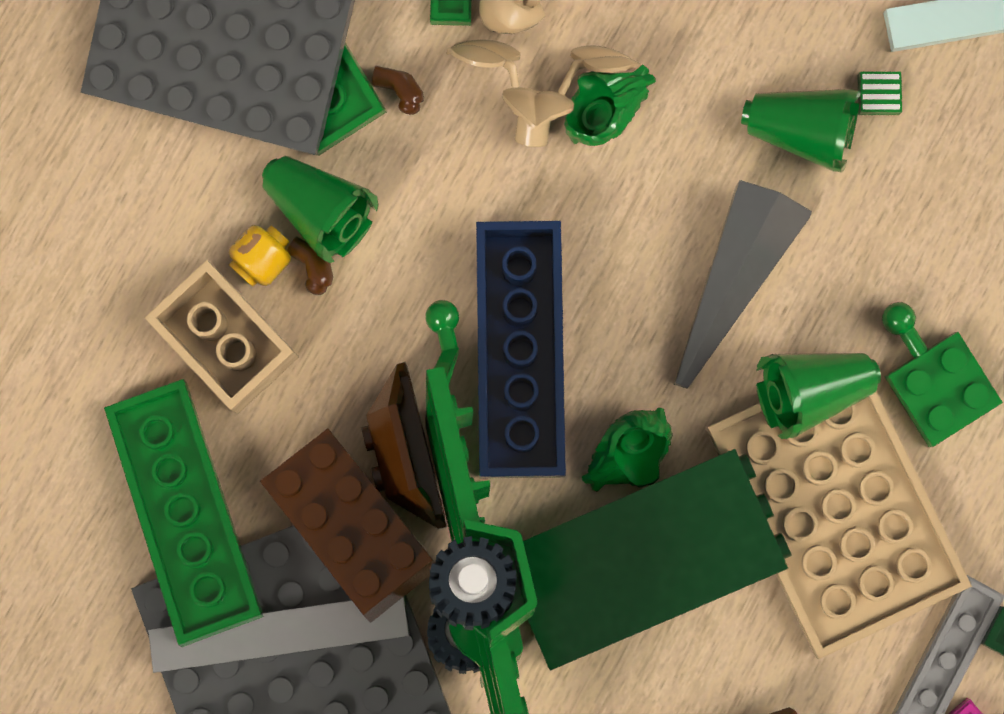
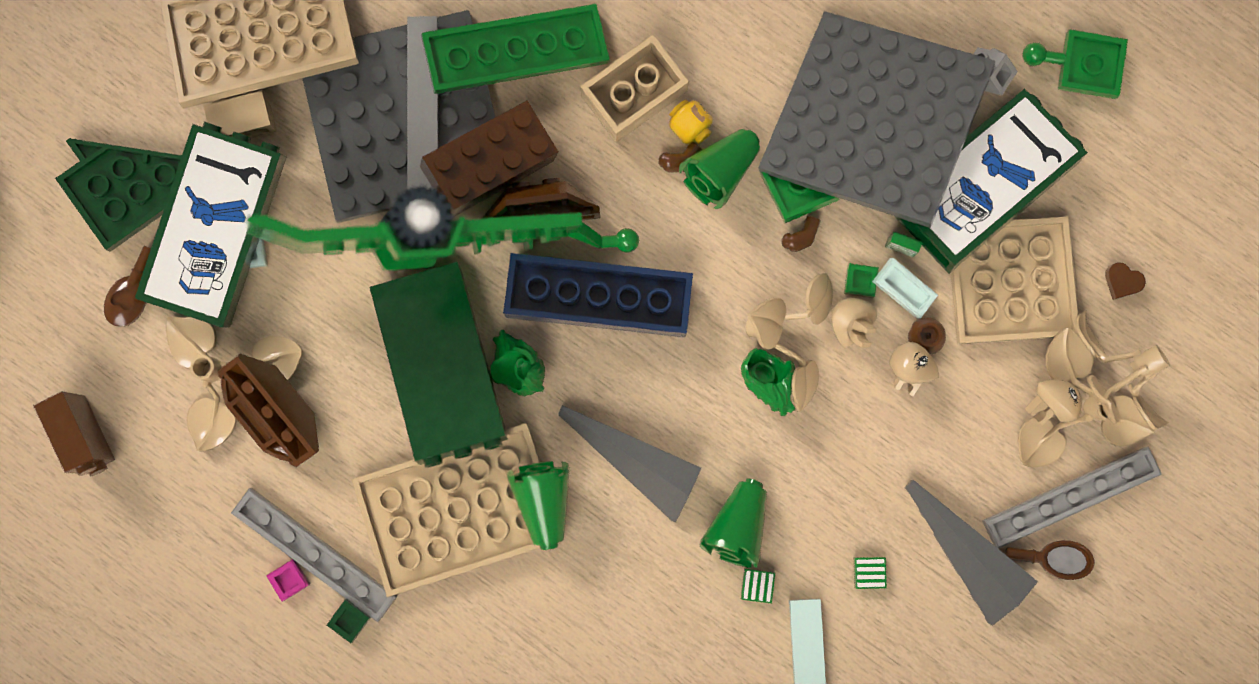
camera: 90 degrees right, 0 degrees up
(941, 384) = (536, 597): green plate -> none

